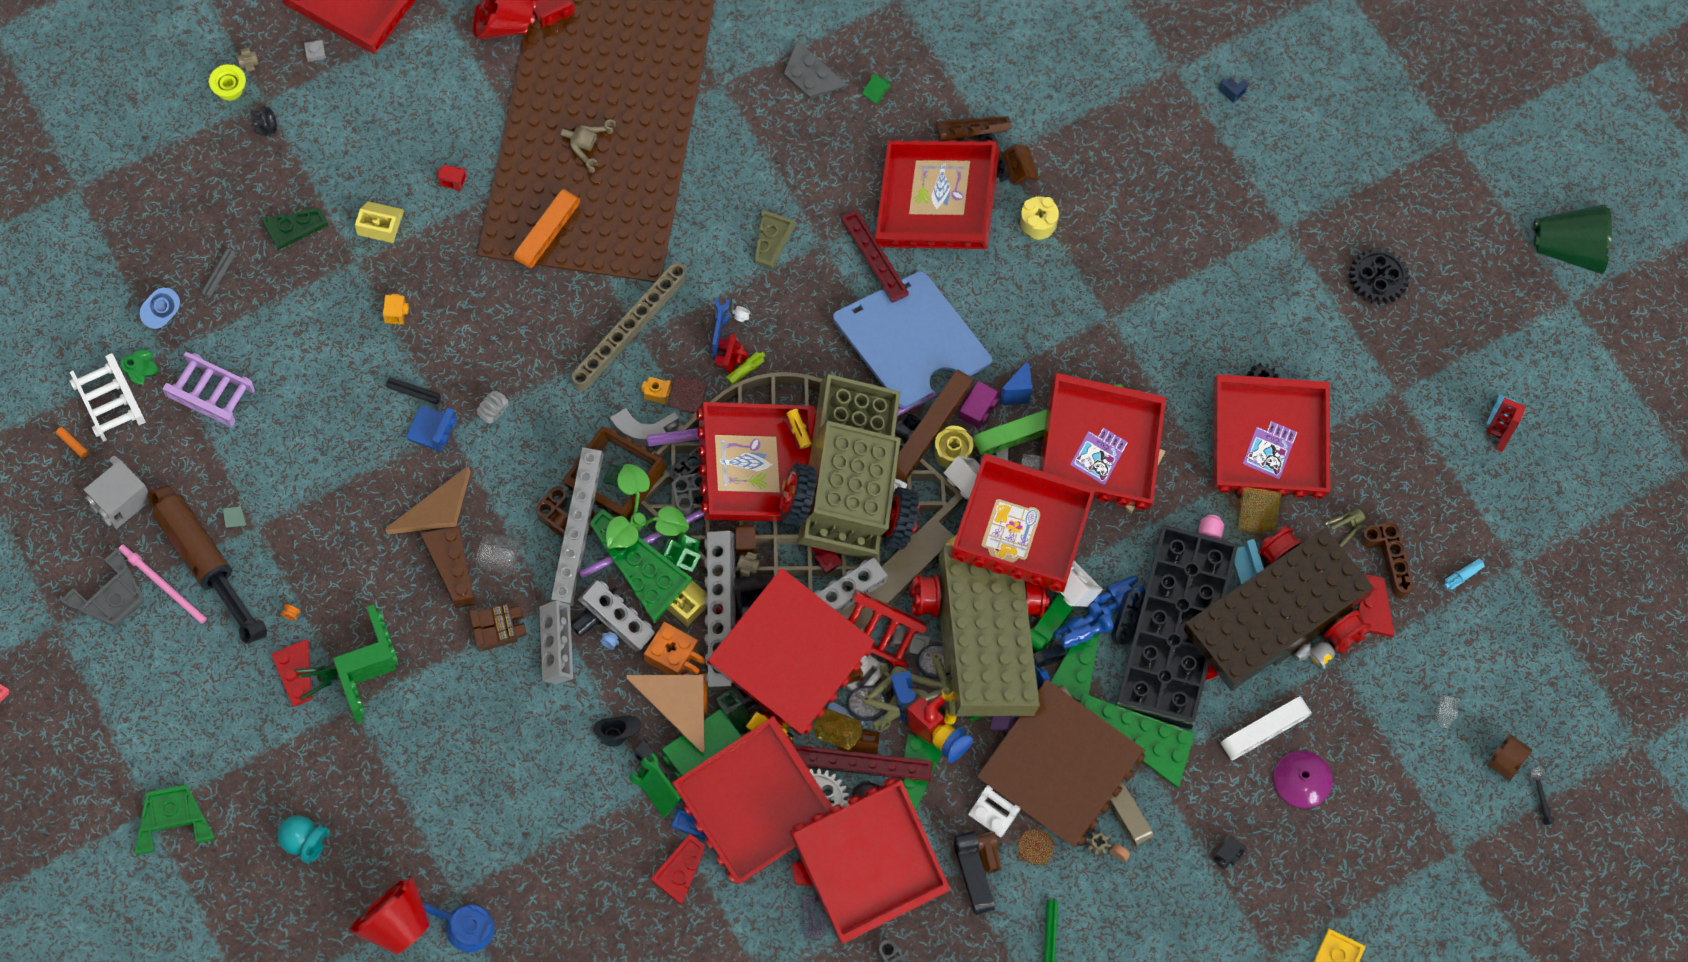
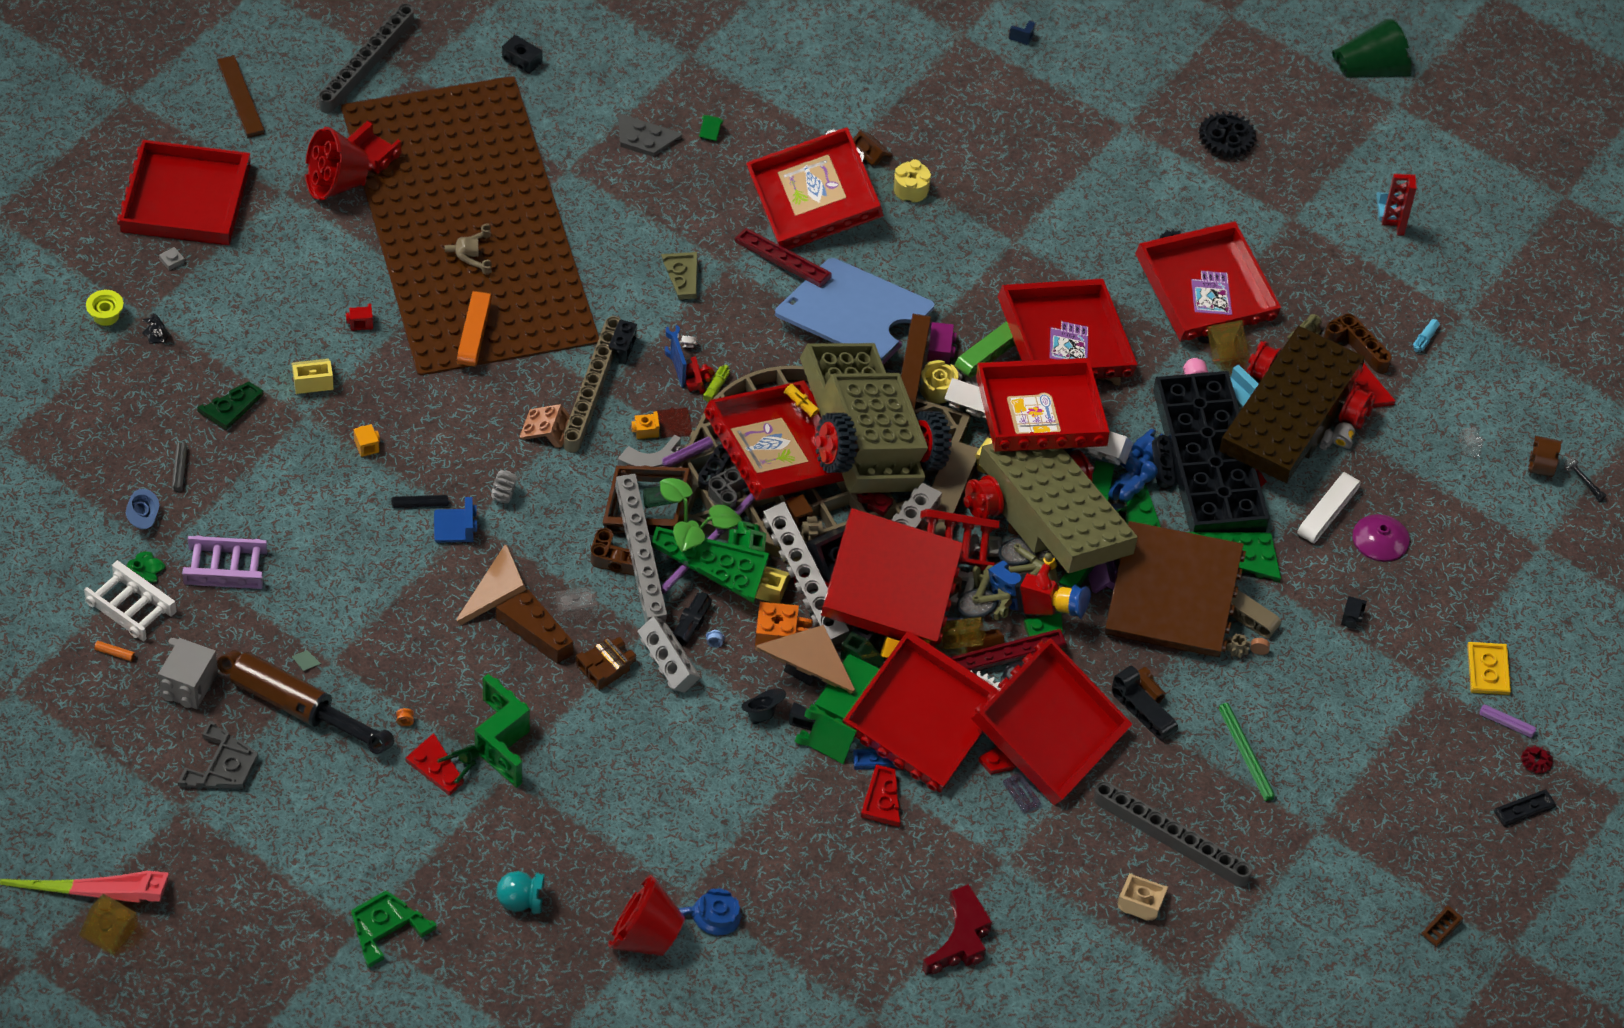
camera: 25 degrees left, 15 degrees down
(136, 560) = (231, 726): bright pink bar -> none
(247, 59) = (113, 282): dark tan gear -> none
(565, 354) = (547, 422): none -> nougat bracket
(590, 600) = (714, 611): light grey brick -> none
(679, 291) = (623, 340): none -> black bracket
(969, 127) = (811, 131): reddish brown wing -> none
(991, 816) = (1134, 657): white plate -> none
(1018, 388) = (971, 316): blue slope -> none
(1035, 847) = (1185, 669): clear orange piece -> none

